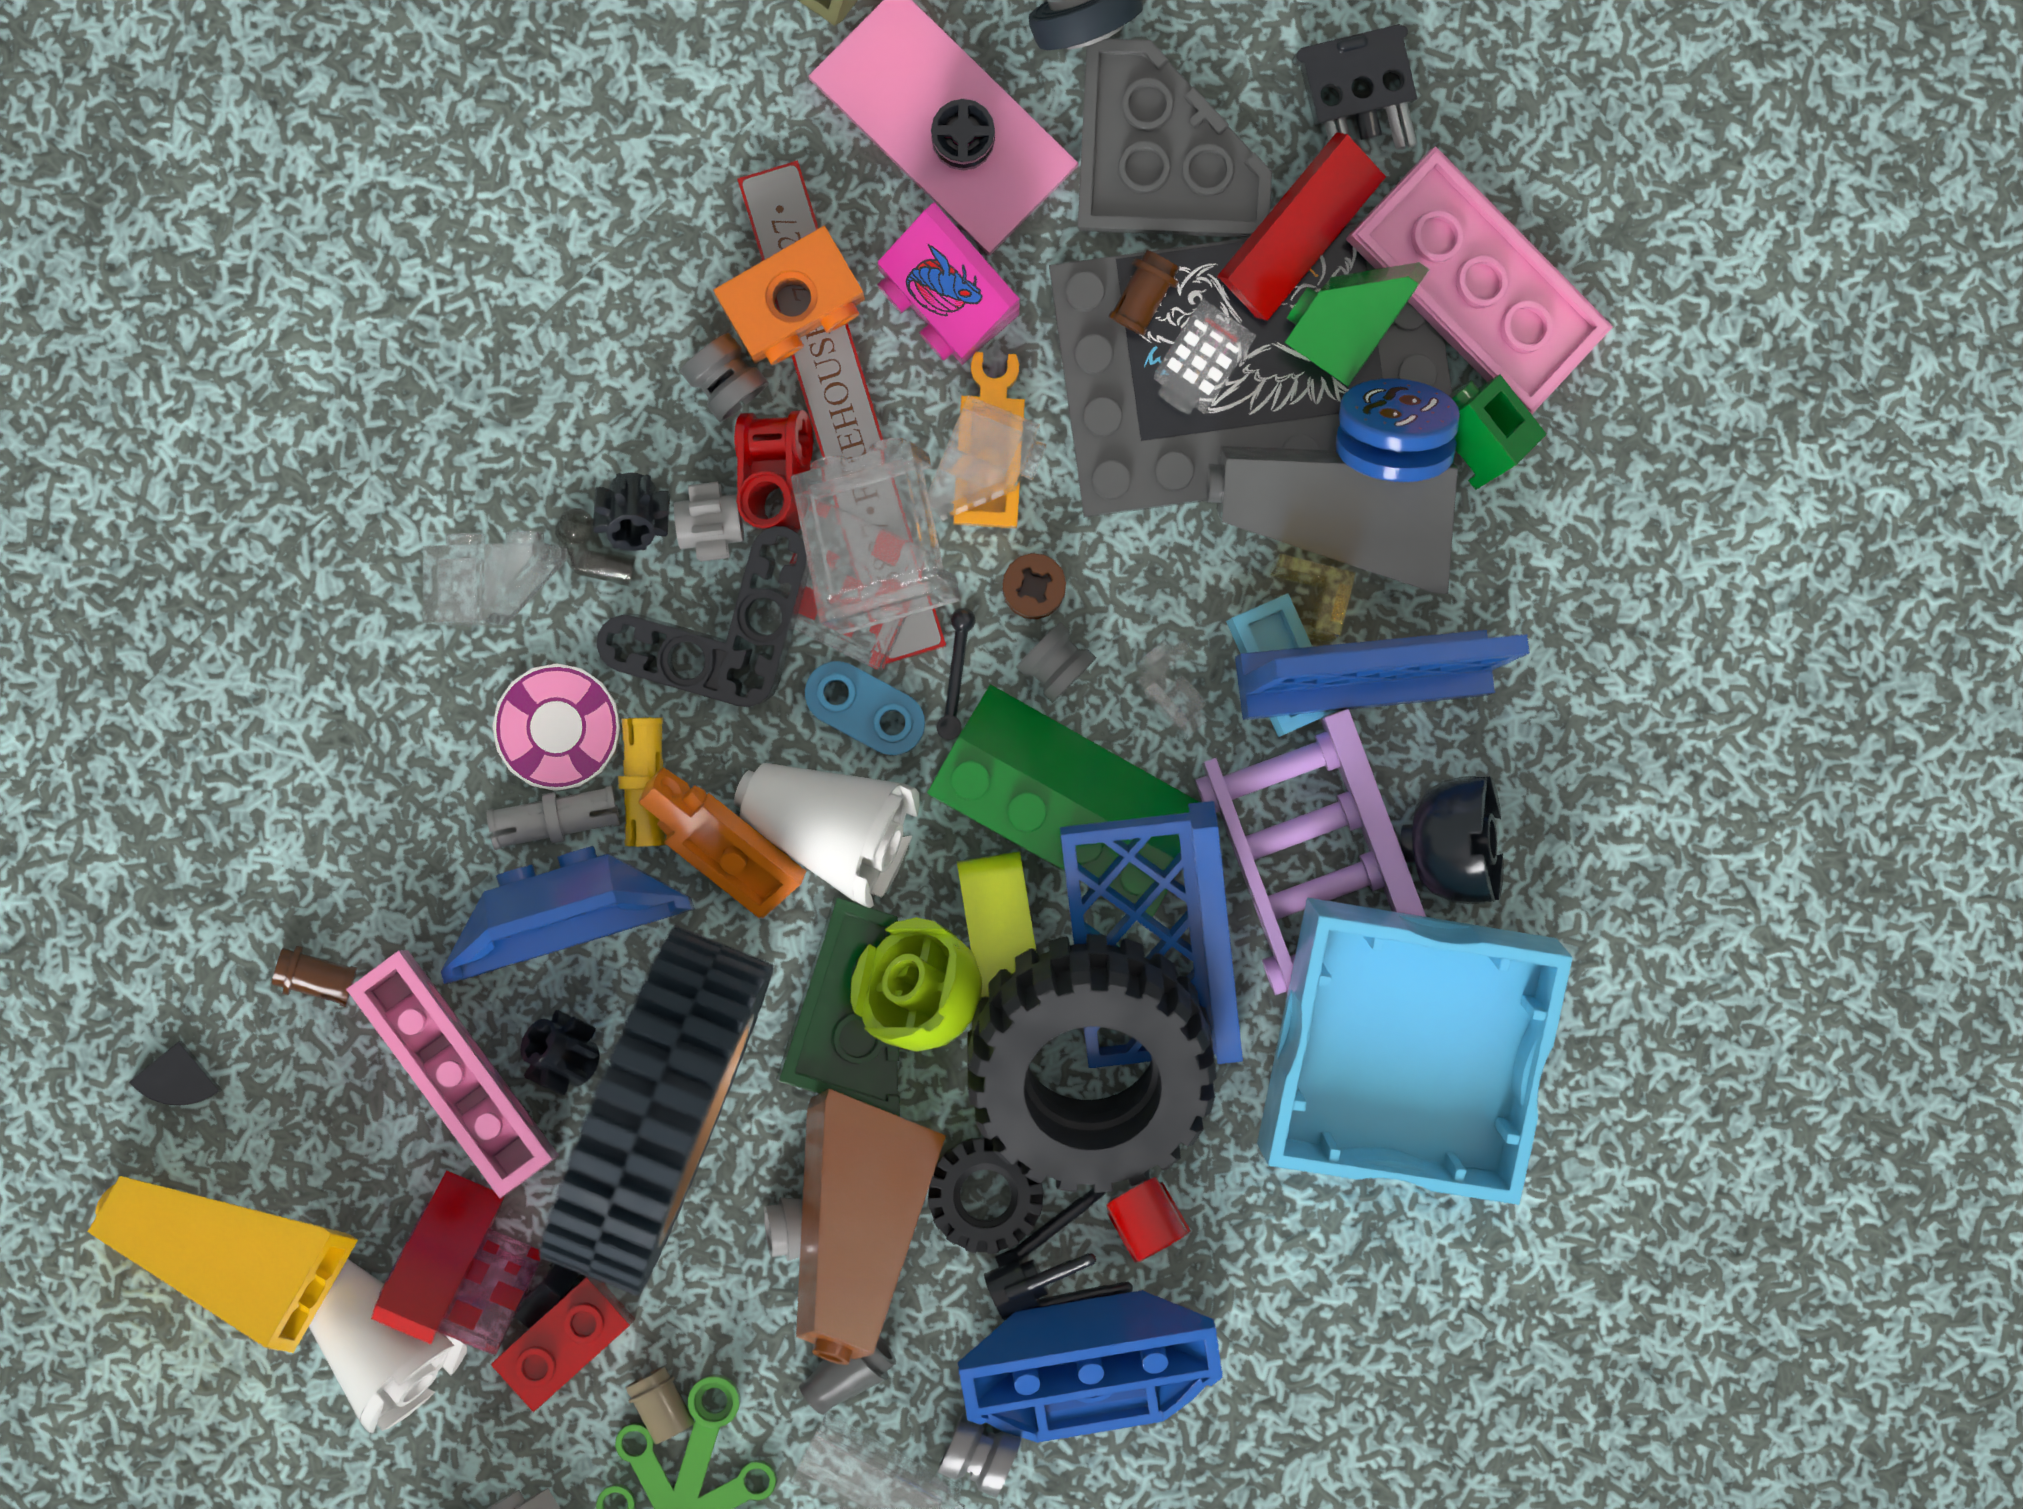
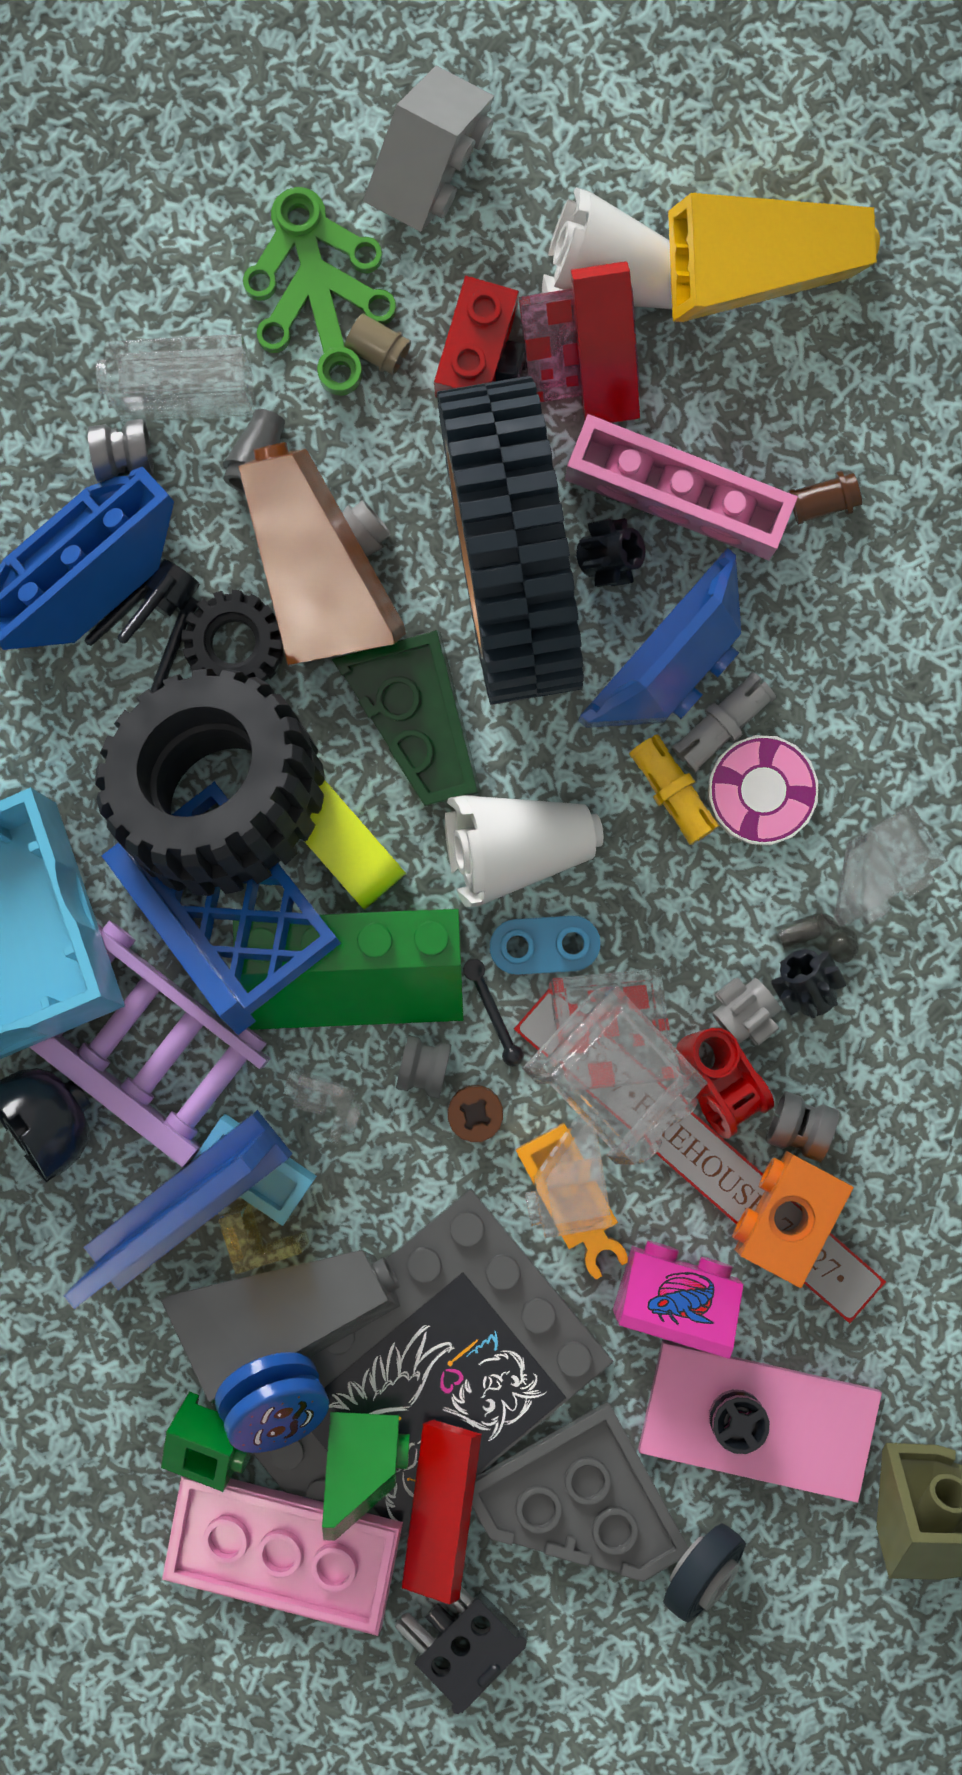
camera: 150 degrees right, 0 degrees up
(176, 1079) = (878, 363): black tile -> none
(720, 654) = (675, 918): black beam -> none
(721, 844) = (588, 777): orange hinge -> none
(916, 986) = (376, 760): lime cylinder -> none
(1144, 292) = (528, 1387): reddish brown pin -> none
(1147, 1219) = (97, 693): red piece -> none
(1202, 359) = (452, 1365): clear slope -> none

